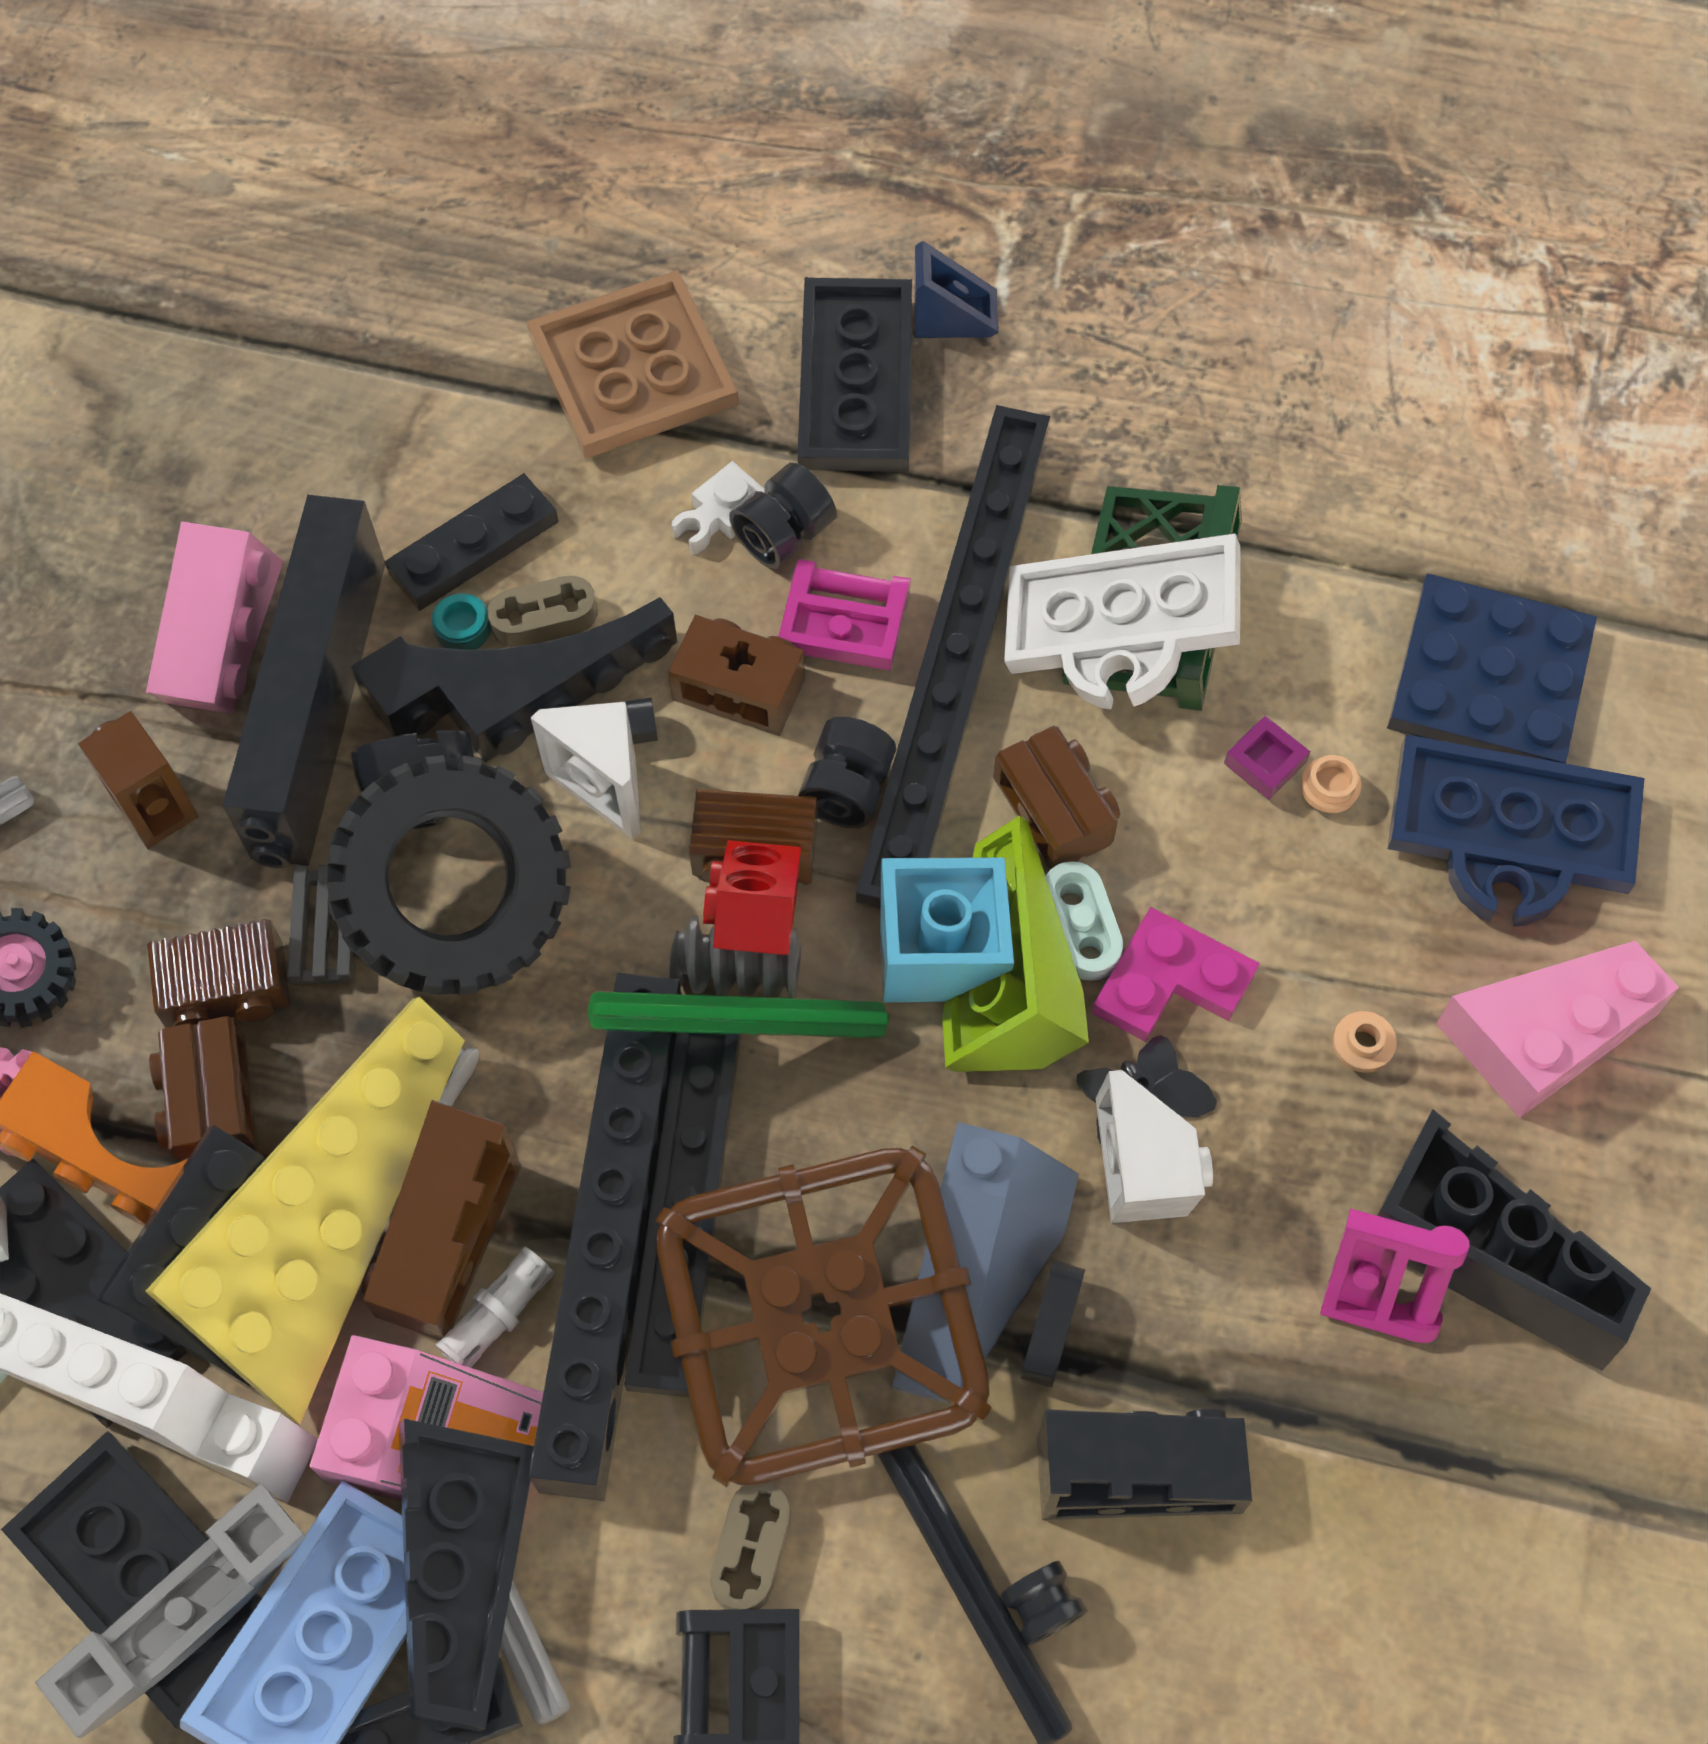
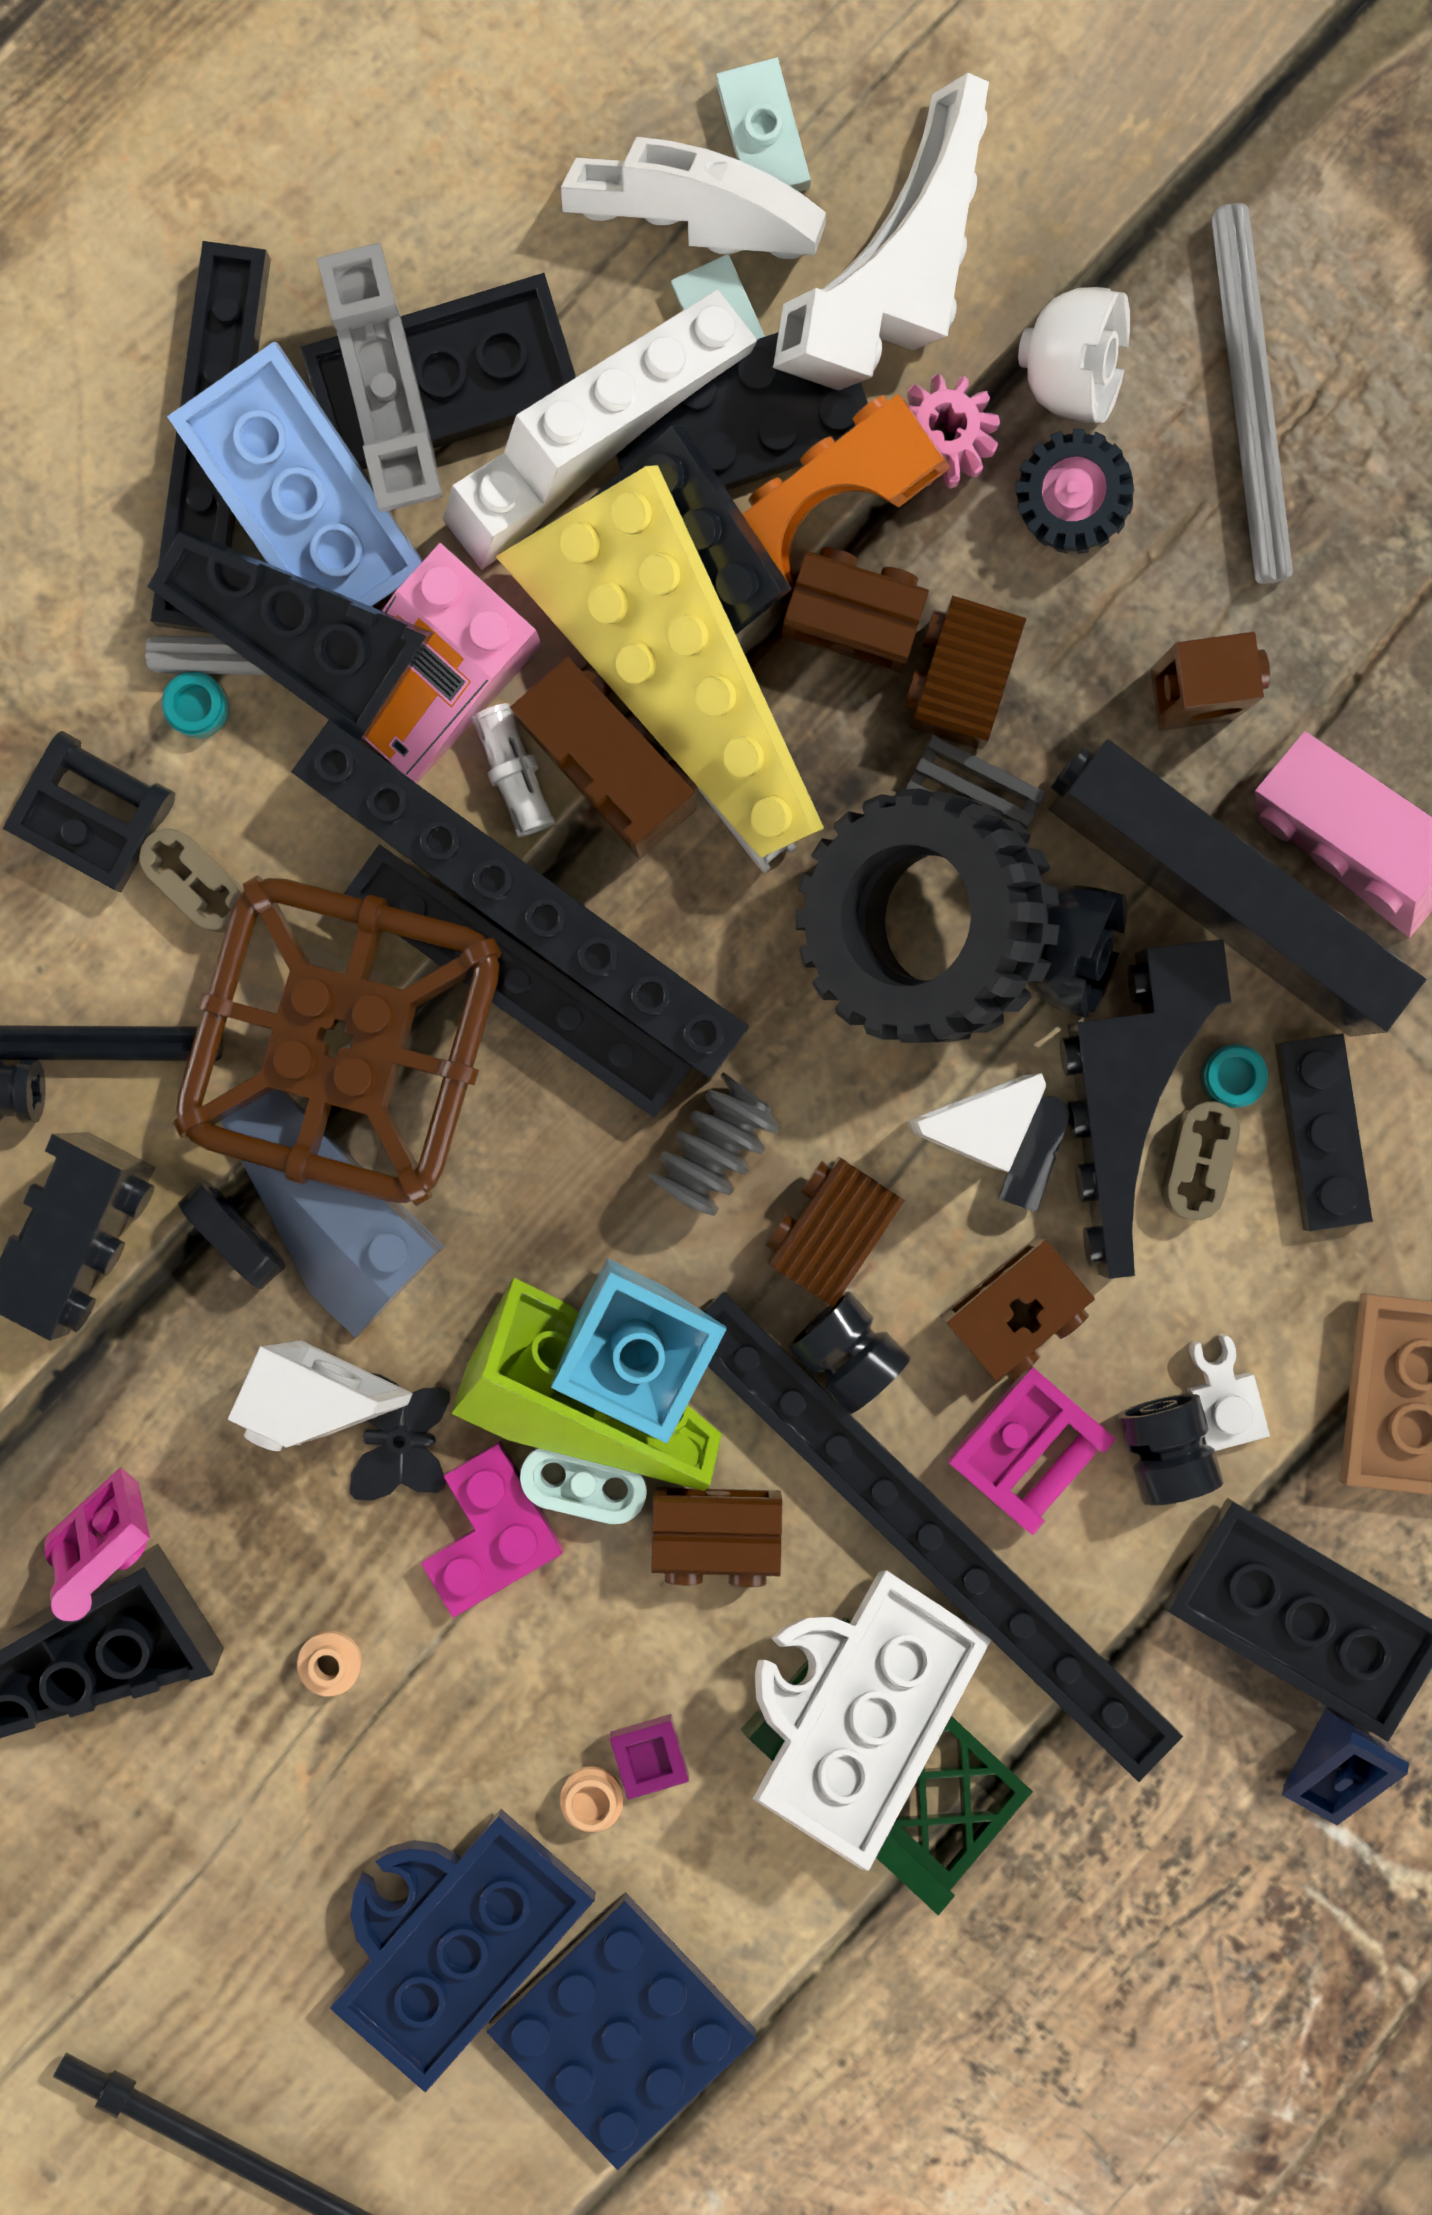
camera: 115 degrees right, 25 degrees up
(581, 1643) = (195, 705): none -> teal tile
(736, 1015) = (646, 1111): green axle -> none
(753, 897) = (745, 1190): red brick -> none
(1555, 1021) = (238, 1846): bright pink wedge -> none

